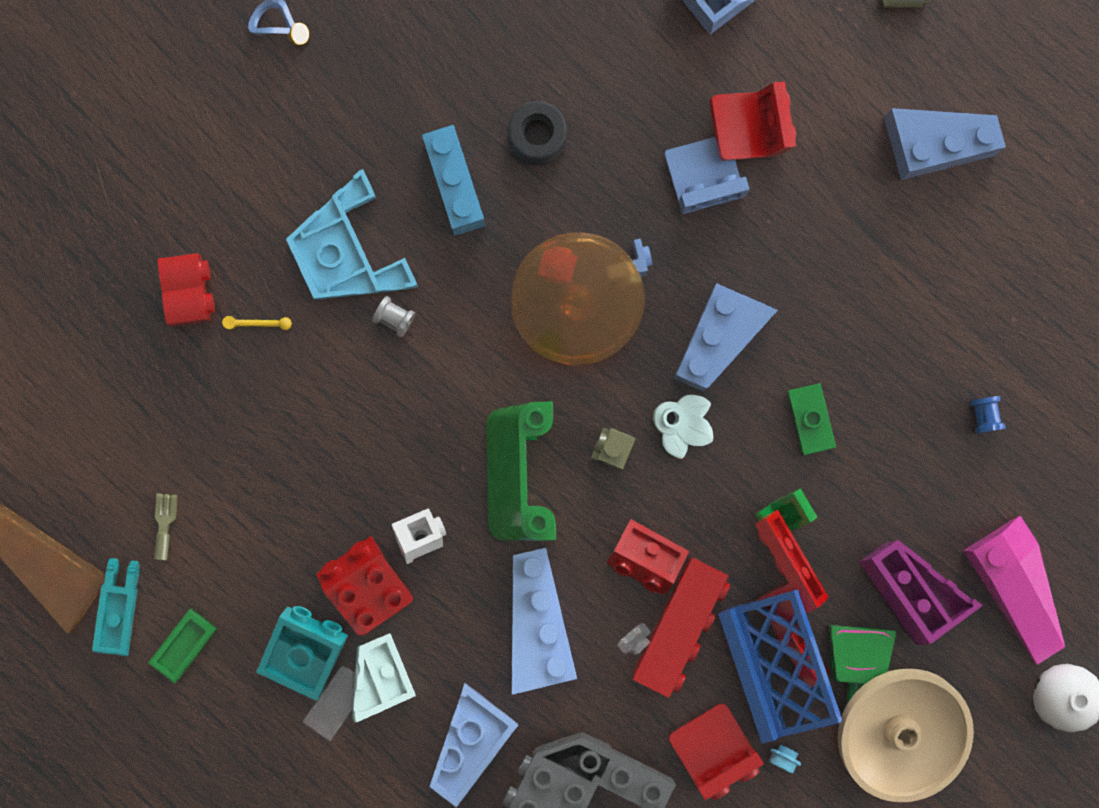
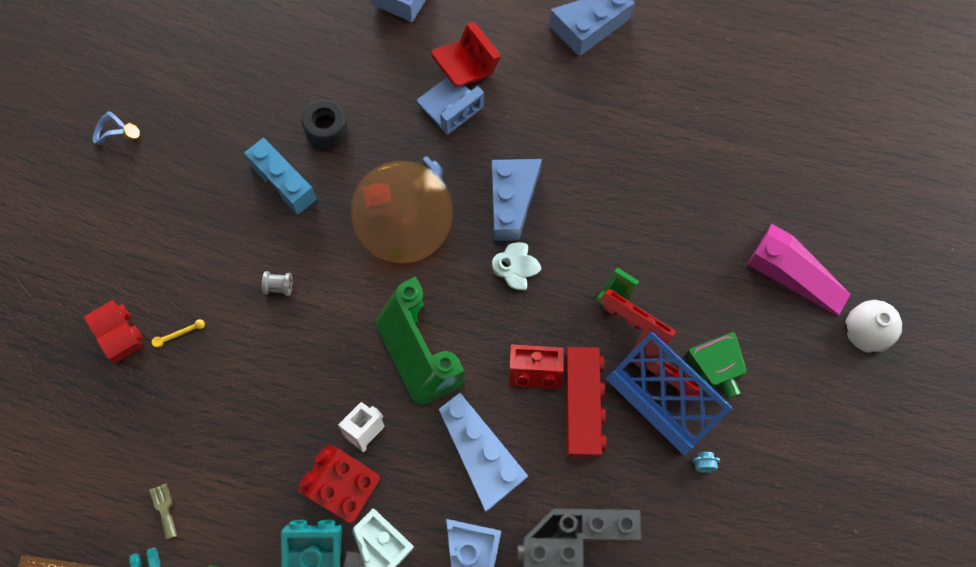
camera: 25 degrees left, 15 degrees down
(332, 253) = (215, 262): medium azure wing -> none
(613, 448) = (475, 301): olive brick -> none
(635, 640) = (555, 423): clear plate -> none
(715, 752) = (654, 480): red bracket -> none
(811, 419) = (600, 224): green plate -> none
(905, 735) = (780, 401): tan dish -> none
(917, 593) = (732, 301): magenta wedge -> none
(987, 414) = (720, 173): blue bush -> none

